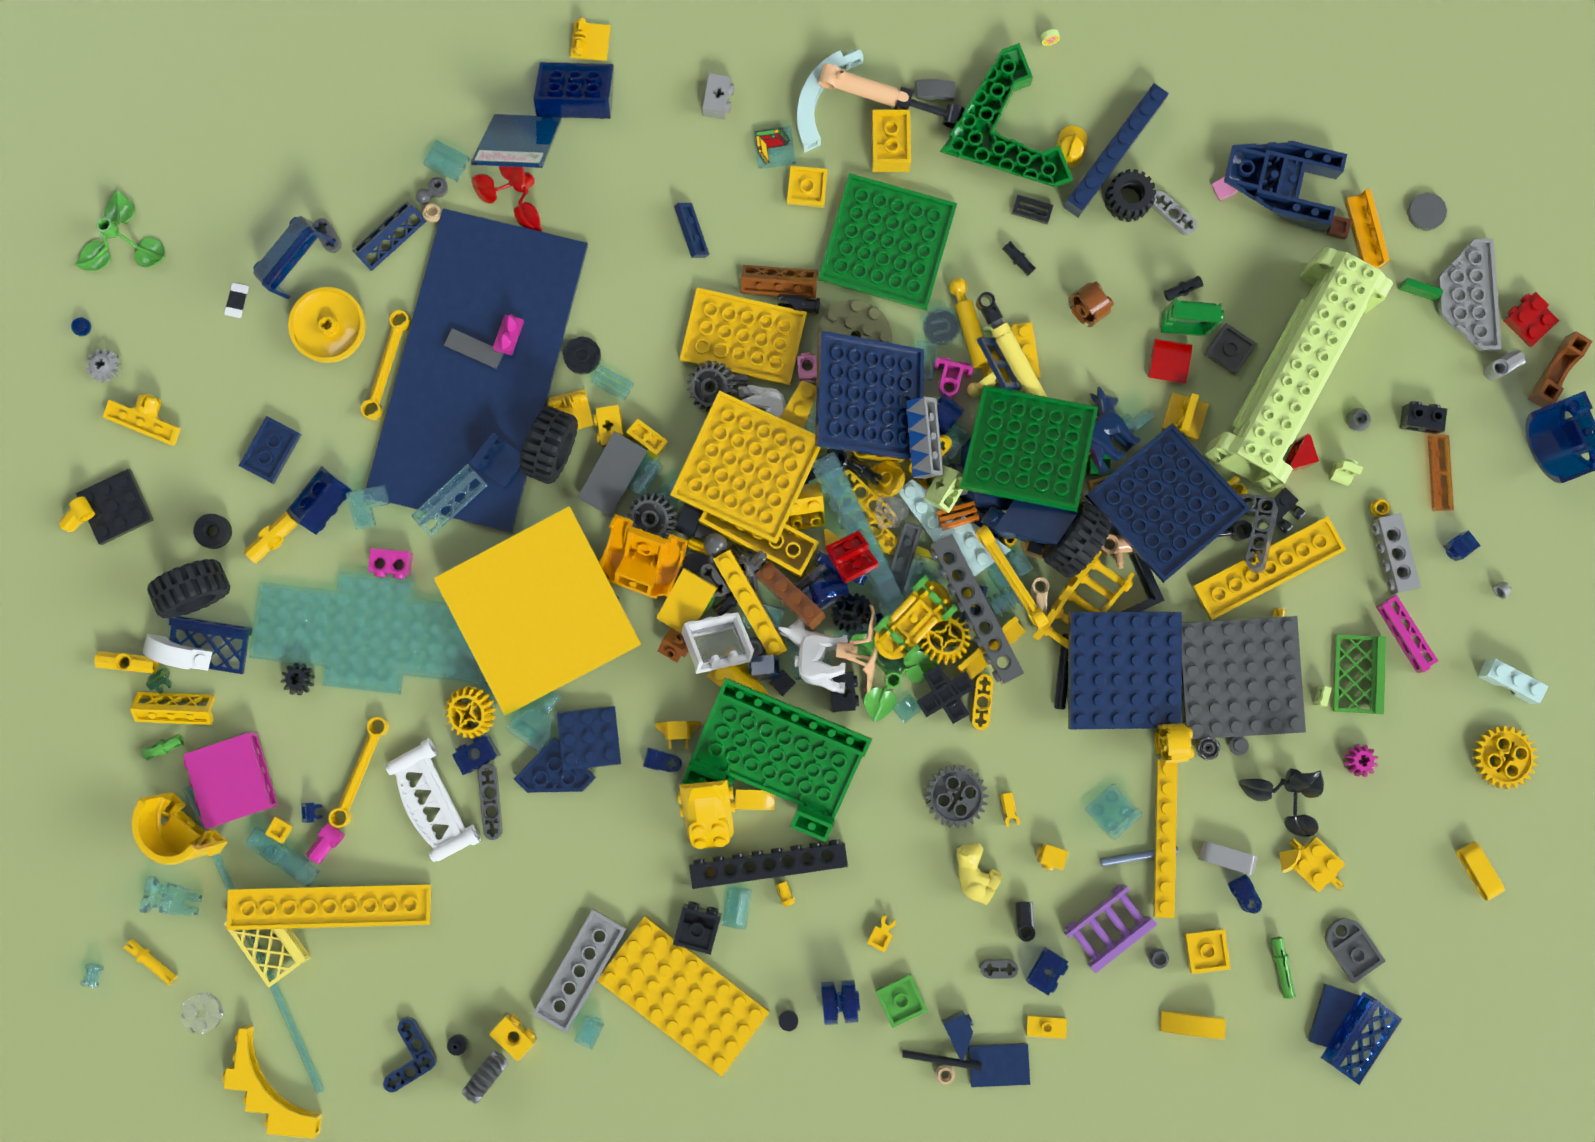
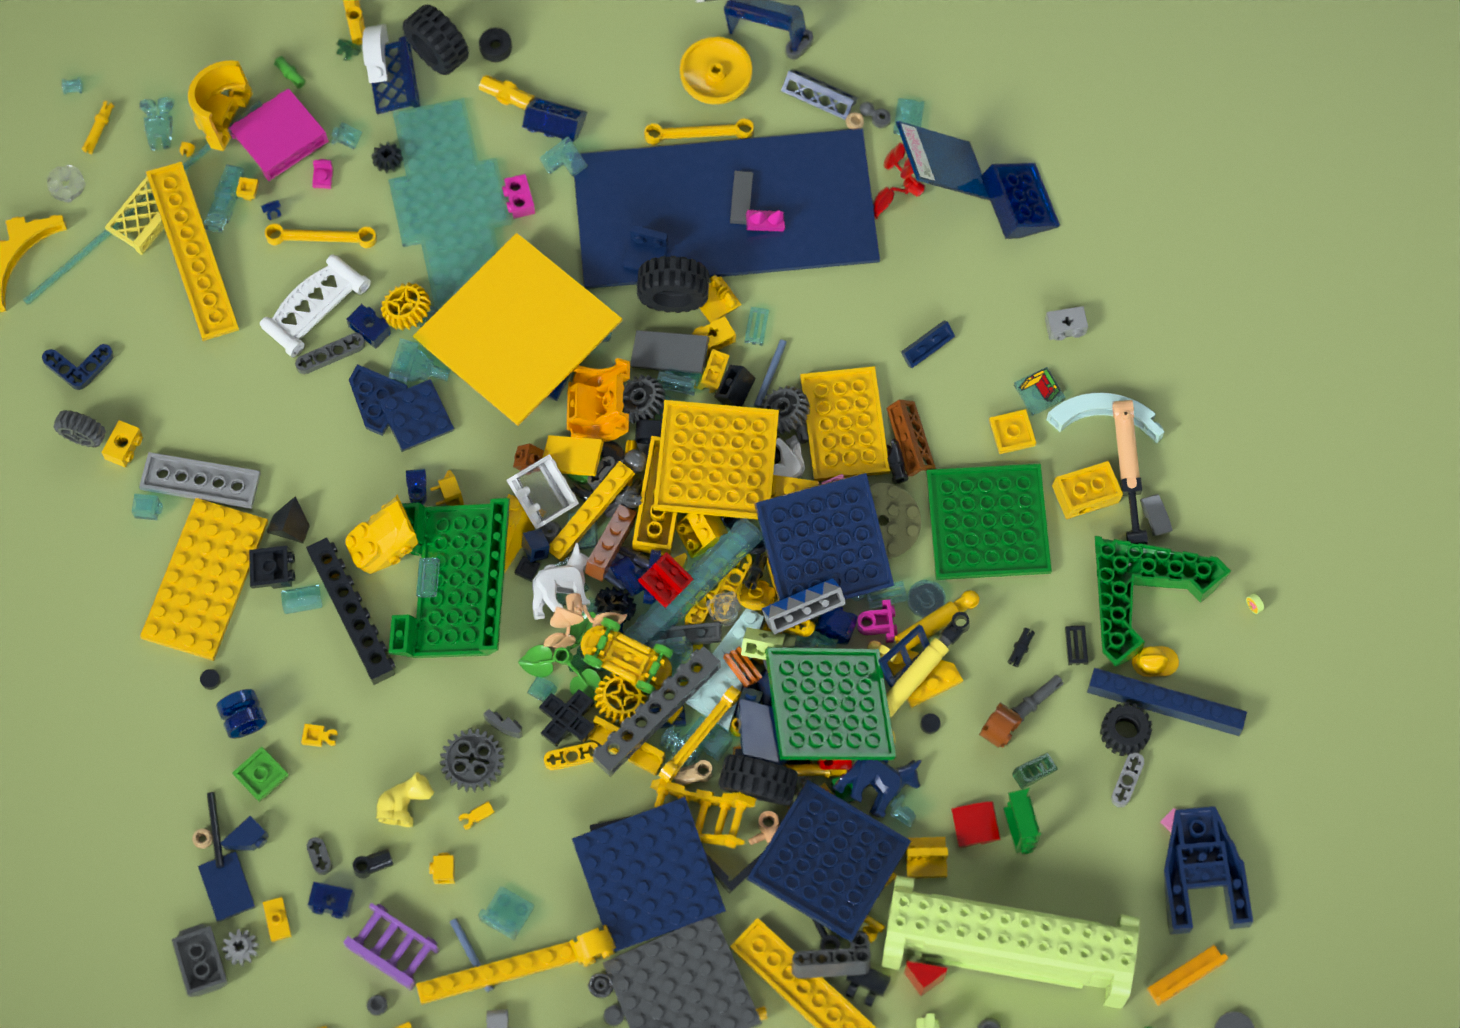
camera: 70 degrees right, 15 degrees down
(171, 711) = (322, 68): yellow fence -> none
(210, 876) = (187, 148): none -> yellow hinge
(257, 712) = (346, 135): none -> clear light blue bracket
(270, 450) = (585, 65): dark blue plate -> none
(291, 749) = (322, 174): none -> dark pink bracket
(327, 839) = (252, 231): dark pink piece -> none
(443, 498) = (595, 217): clear light blue fence -> none
(457, 1040) = (100, 400): black tile -> none
(582, 355) = (772, 291): black tile -> none
(590, 41) = (1073, 198): yellow hinge -> none
(655, 895) = (290, 522): none -> black slope
(666, 387) = (770, 373): none -> sand blue bar
(671, 424) = (735, 386): none -> black brick
(754, 800) = (407, 578): yellow slope -> none
(764, 780) = (427, 577): none -> clear light blue tile
(785, 894) = (329, 635): yellow pin -> none
(851, 701) = (528, 630): black brick -> none
(935, 752) = (507, 727): none -> dark grey slope
(1061, 366) = (930, 723): none -> black tile
(1063, 1113) = (199, 960): none -> dark grey slope
(1068, 1063) = (242, 954): none -> light grey gear
(1075, 270) = (1030, 703): none -> dark grey pin
(1137, 303) = (1024, 777): none -> clear green slope
(1183, 288) = (1054, 813): black pin -> none
(1230, 349) = (1012, 880): dark grey tile -> none
(1339, 227) = (1180, 946): copper plate -> none

